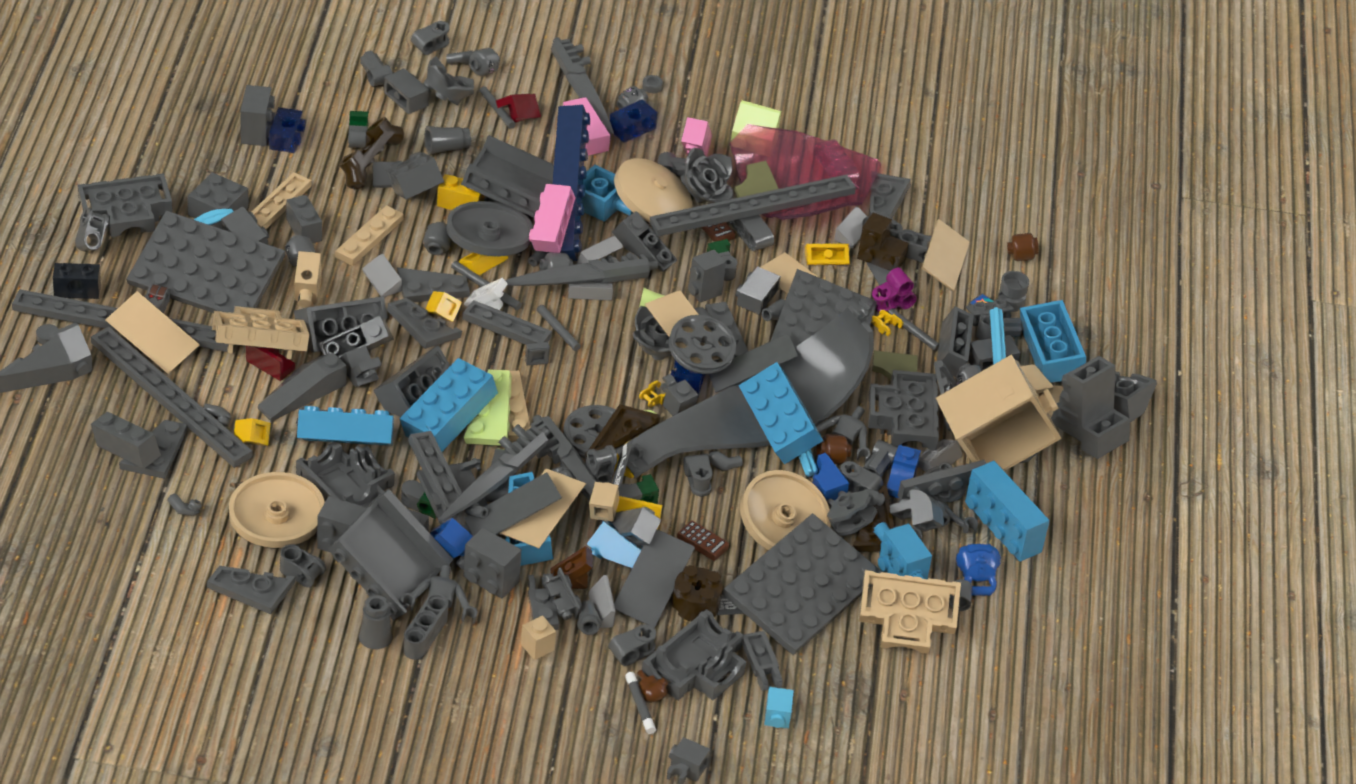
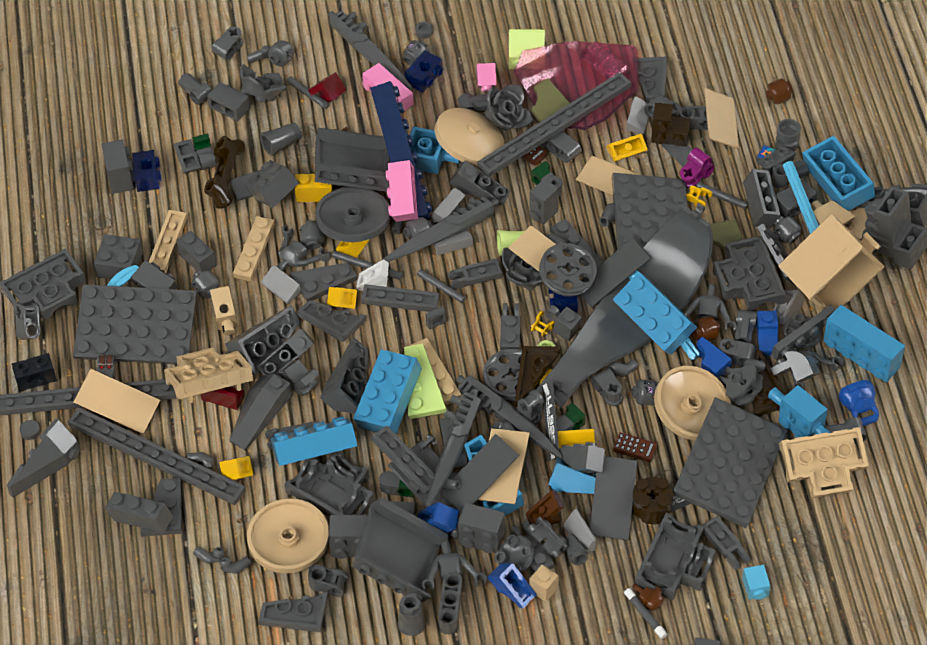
camera: 10 degrees left, 10 degrees up
(205, 525) = (234, 567): none -> dark grey arm
(338, 129) = (187, 156): none -> dark grey slope
(412, 249) = (295, 251): none -> dark grey piece
(502, 628) = (512, 584): none -> blue arch
(518, 601) = (516, 551): none -> dark grey dish
(601, 325) = (475, 273): none -> dark grey hinge
(604, 501) = (550, 444): tan brick -> none
(616, 386) = (510, 329): none -> dark grey hinge
(631, 646) = (620, 563): dark grey piece -> none
(734, 488) = (644, 392): none -> dark grey head
(757, 290) = (587, 199): brick -> none

